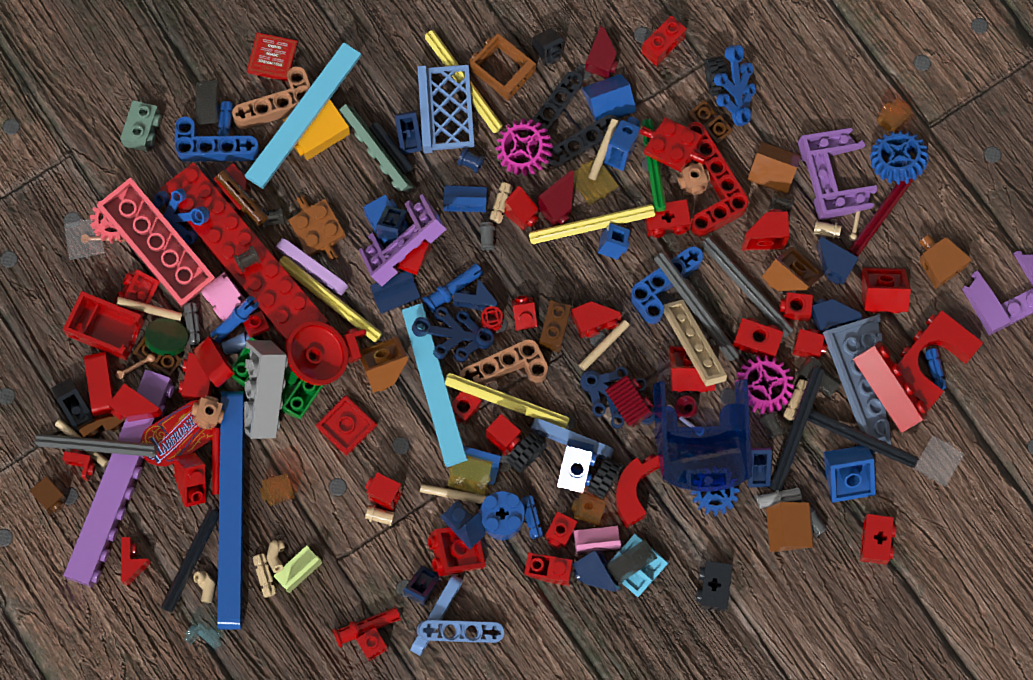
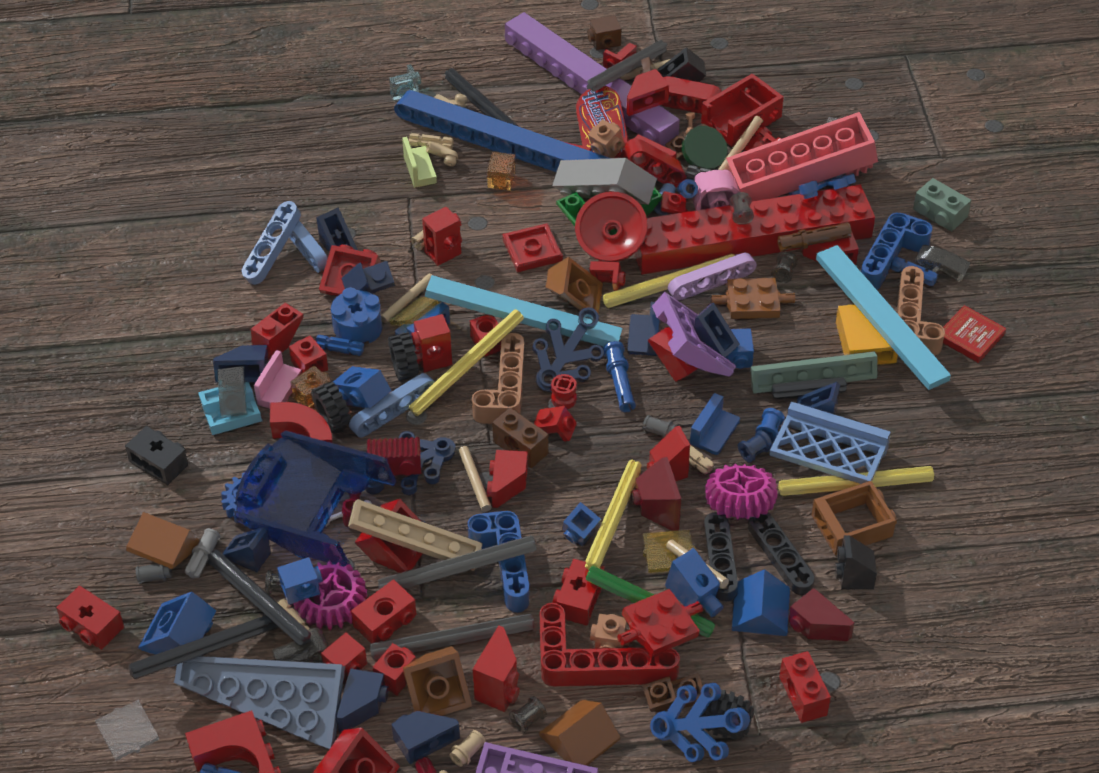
camera: 120 degrees right, 25 degrees down
(131, 567) = (510, 60): red slope -> none
(190, 479) = (555, 118): red slope -> none
(357, 629) = (333, 181): red pin -> none
(371, 644) = (310, 183): red brick -> none
(444, 158) = (771, 421): none -> blue bush
(480, 301) = (594, 389): dark blue slope -> none
(778, 397) = (299, 580): none -> blue brick
(890, 386) = (235, 698): brick -> none

